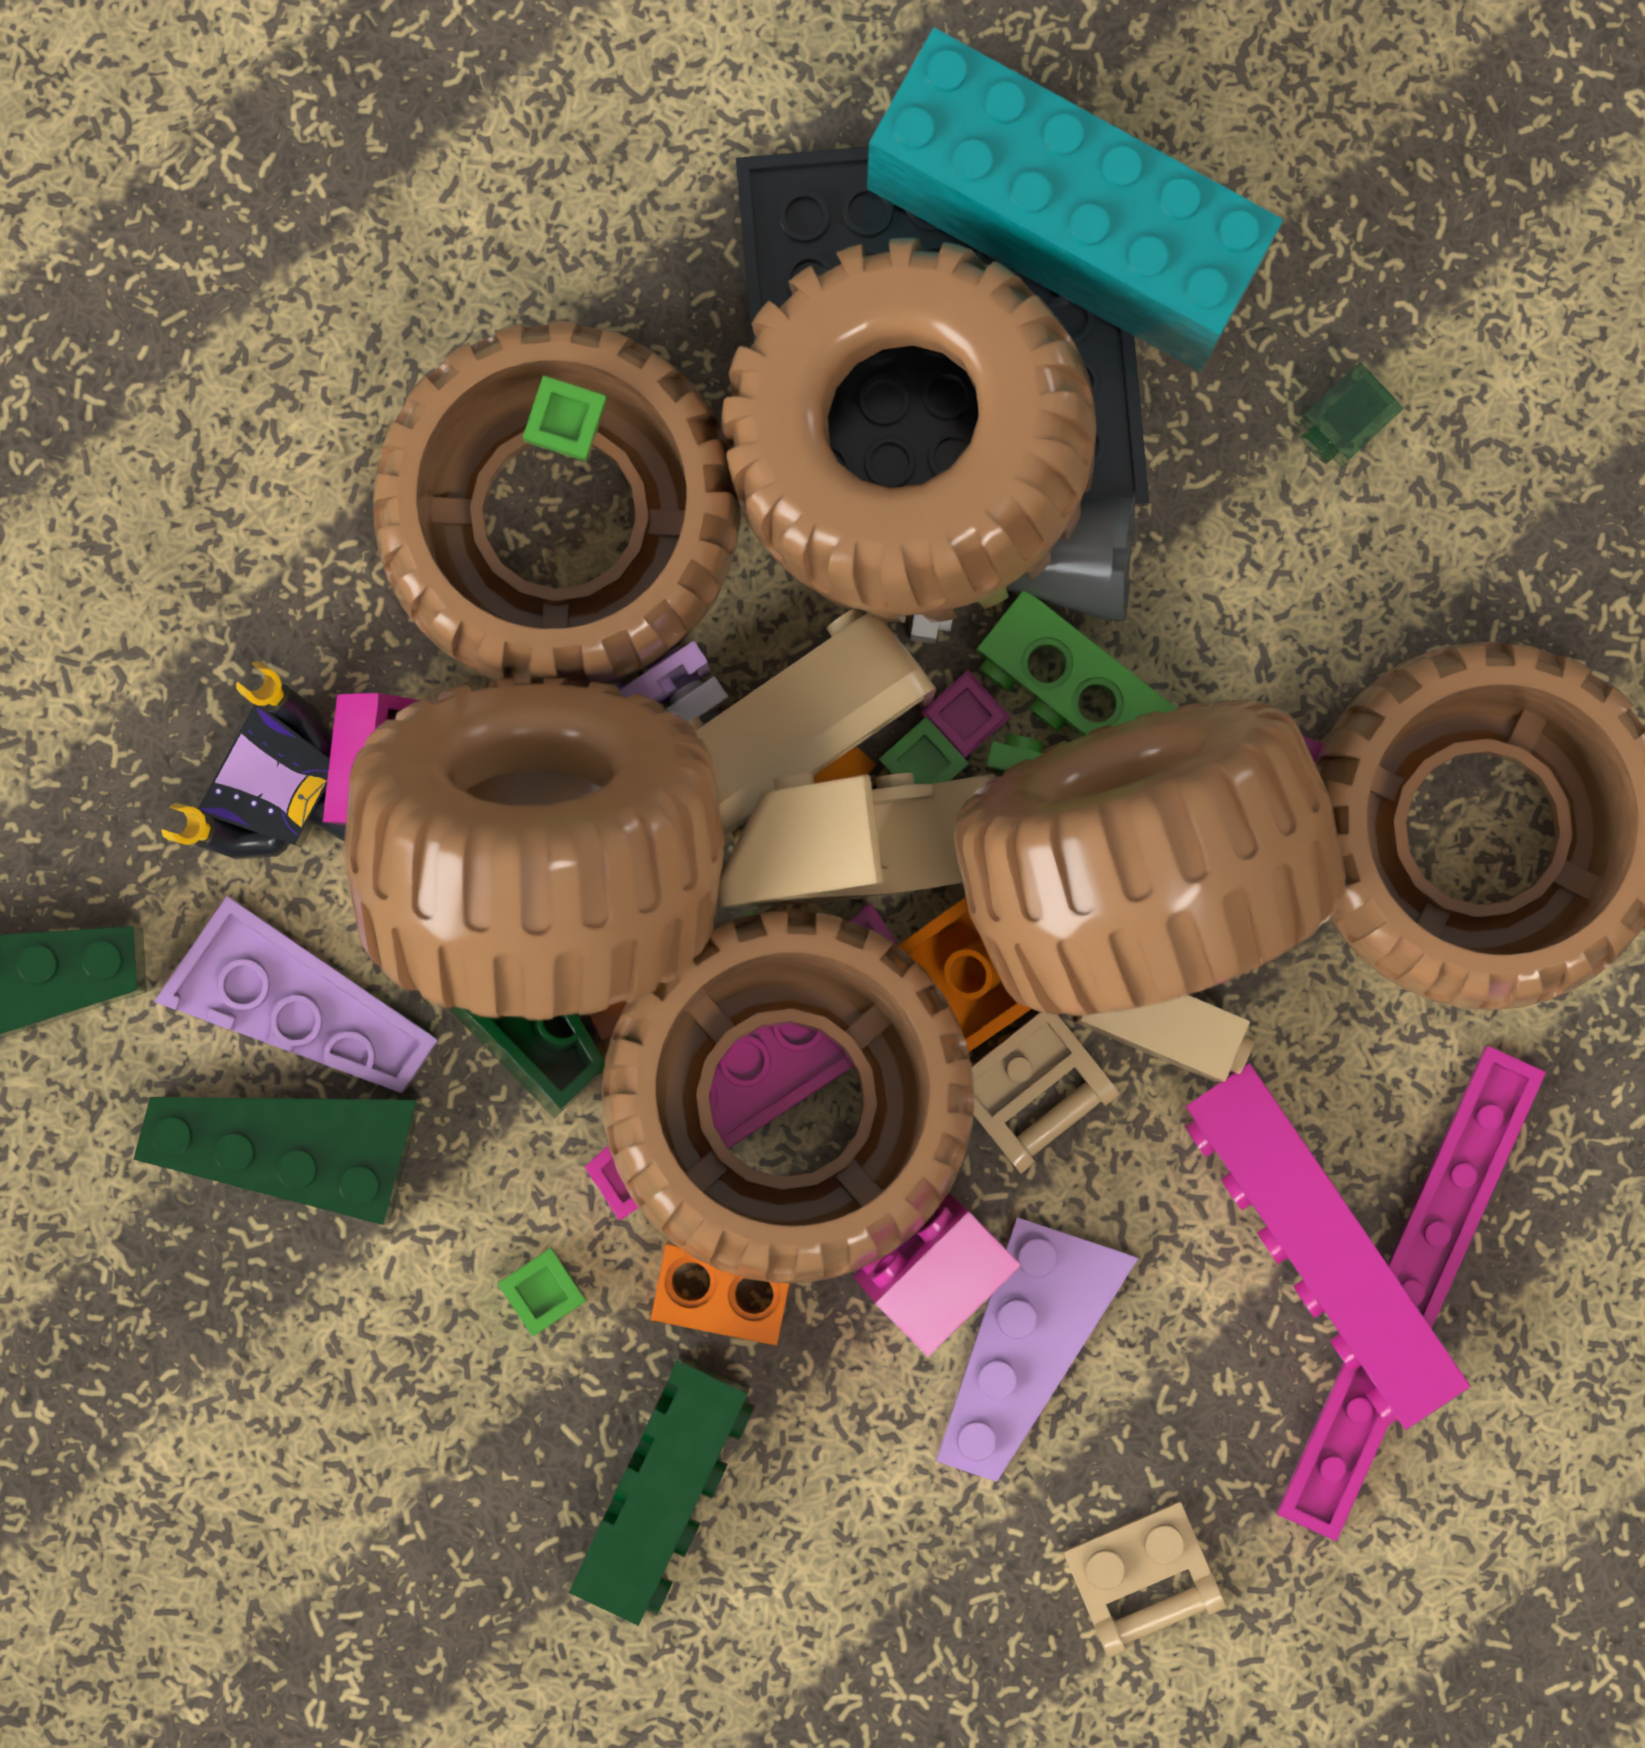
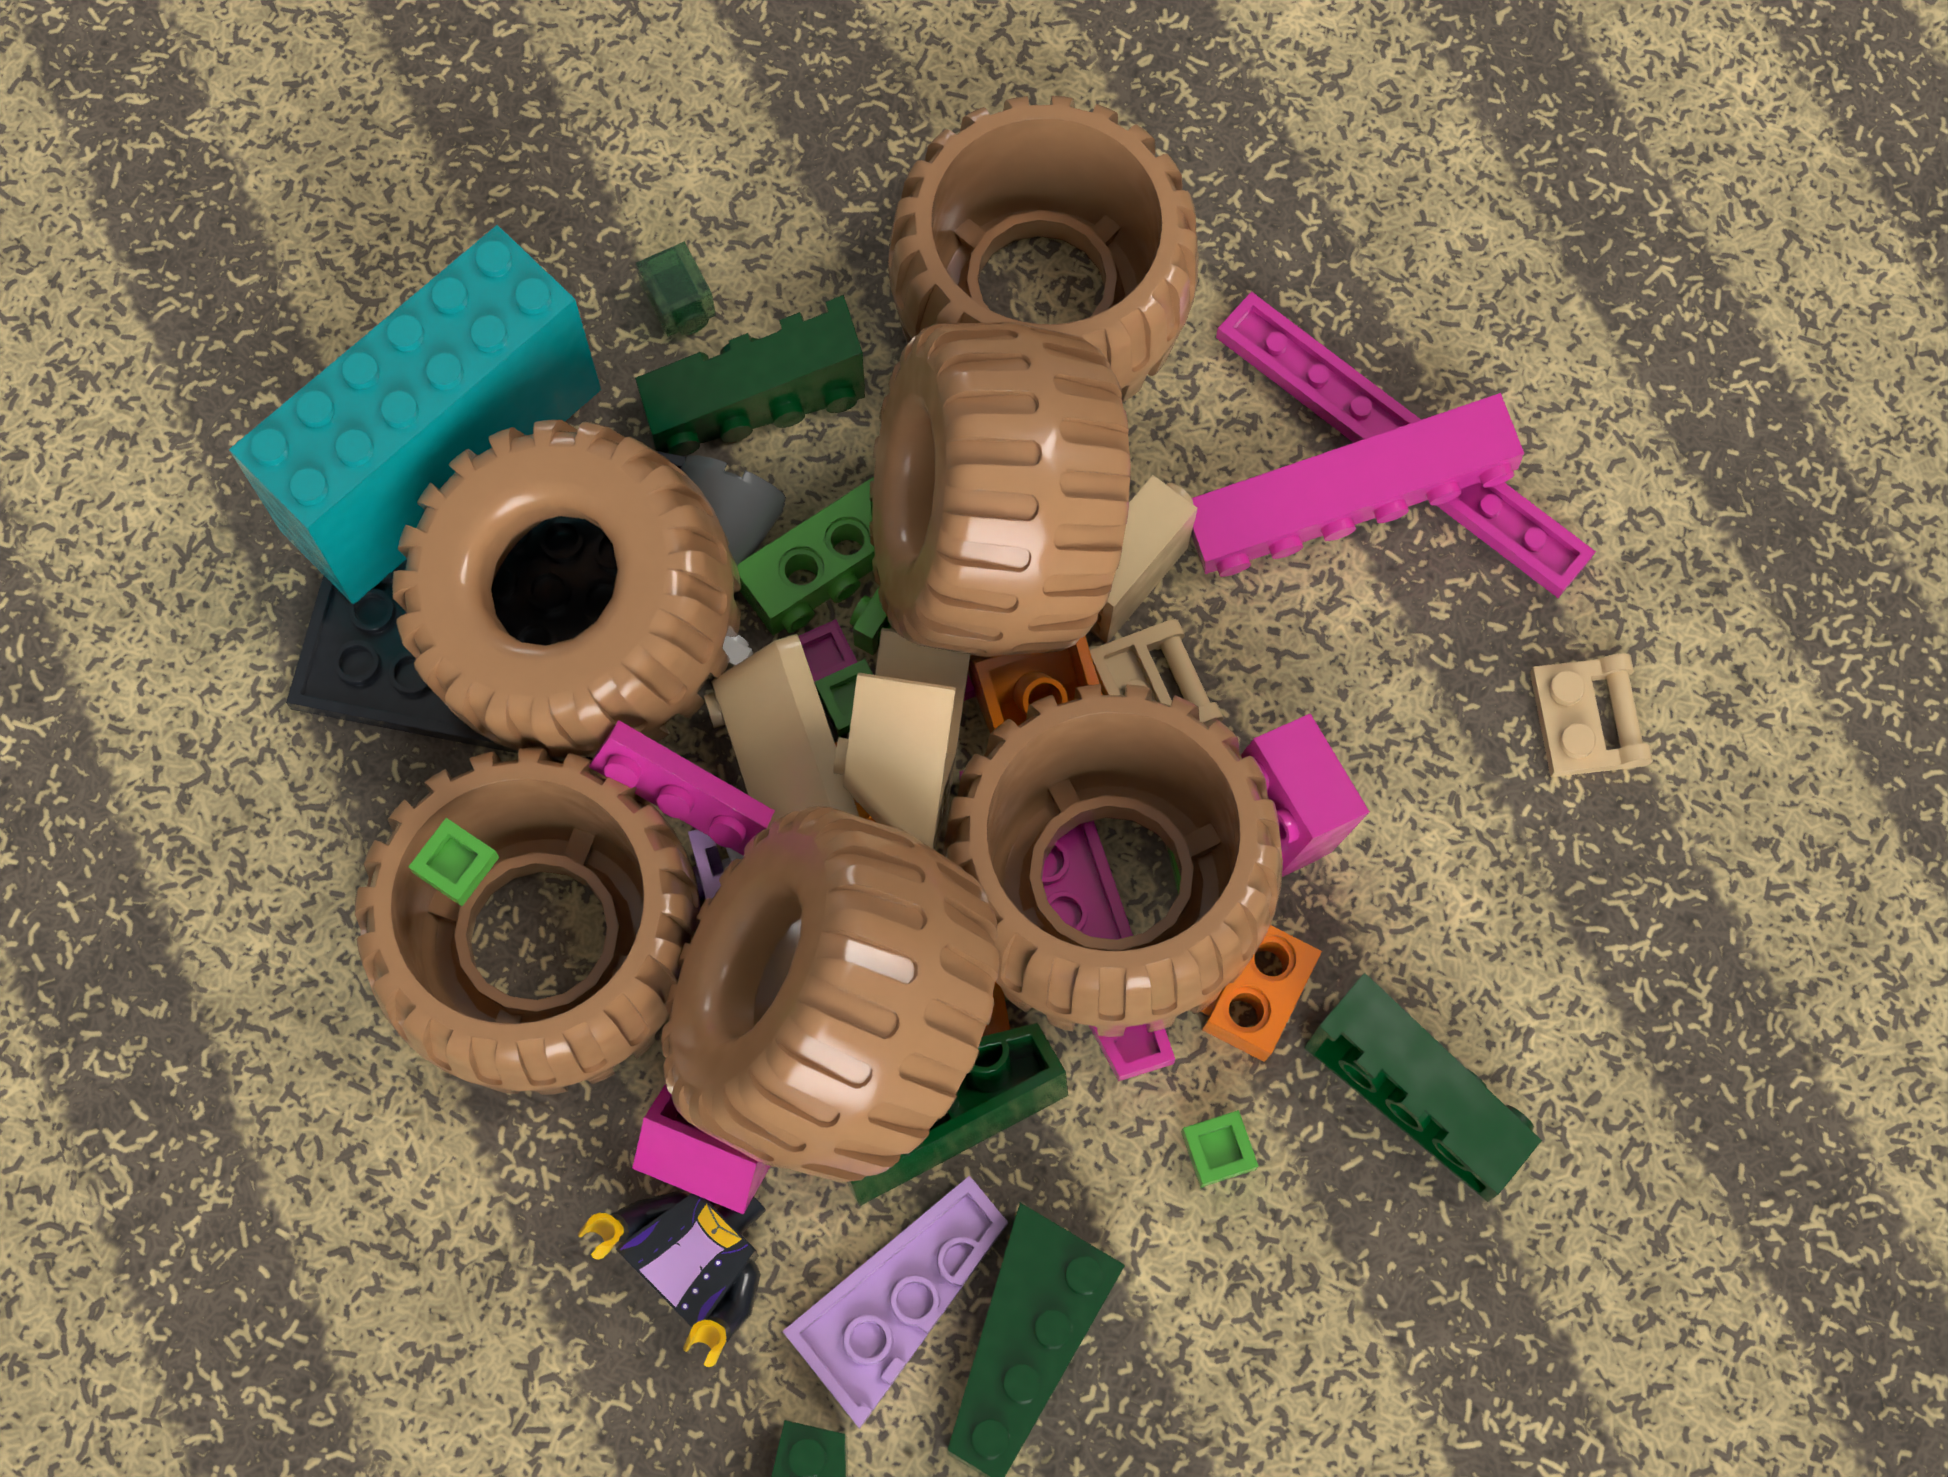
camera: 75 degrees left, 15 degrees down
(725, 622) = (681, 788): none -> dark pink plate
(1028, 1343) = (1377, 754): lavender wing -> none
(1253, 540) = (756, 382): none -> dark green wedge

